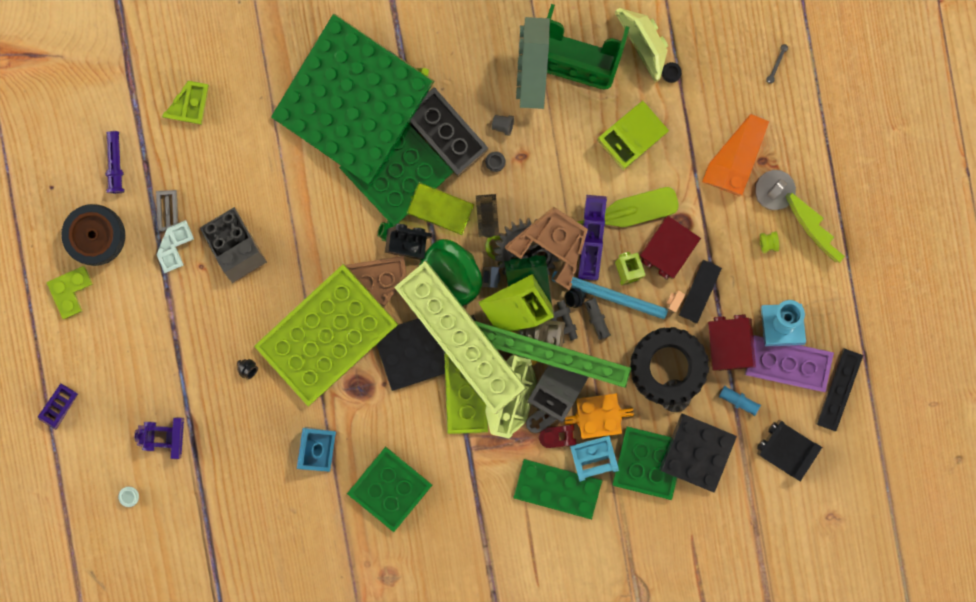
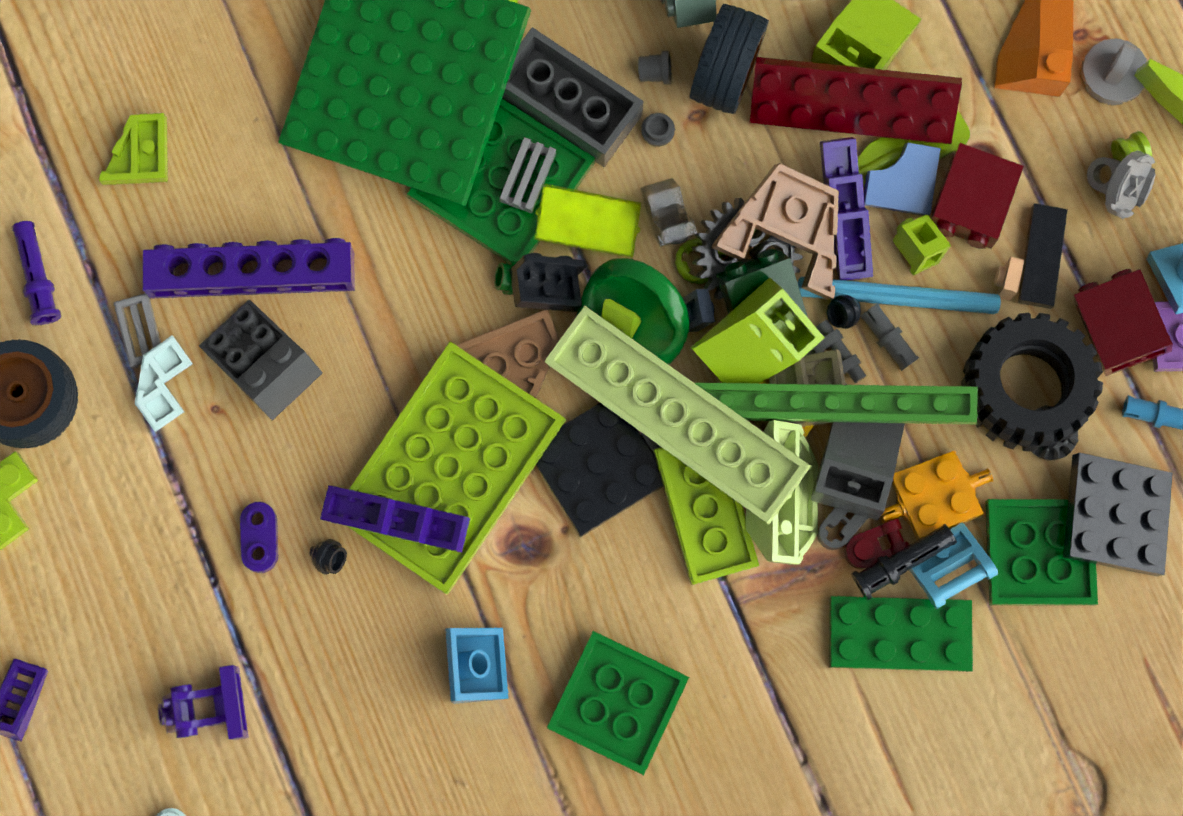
camera: 15 degrees left, 10 degrees down
(186, 185) = (230, 281): none -> dark purple brick
(212, 348) = (259, 536): none -> dark purple plate
(288, 358) = (395, 518): none -> dark purple slope
(405, 168) = (537, 149): none -> light grey tile
(444, 273) = (620, 317): none -> lime slope
(544, 134) = (728, 58): none -> black wheel
(559, 452) = (889, 569): none -> black pin
(612, 175) = (855, 100): none -> dark red plate
(631, 230) = (907, 183): none -> medium blue tile
(760, 262) = (1129, 182): none -> light grey tile

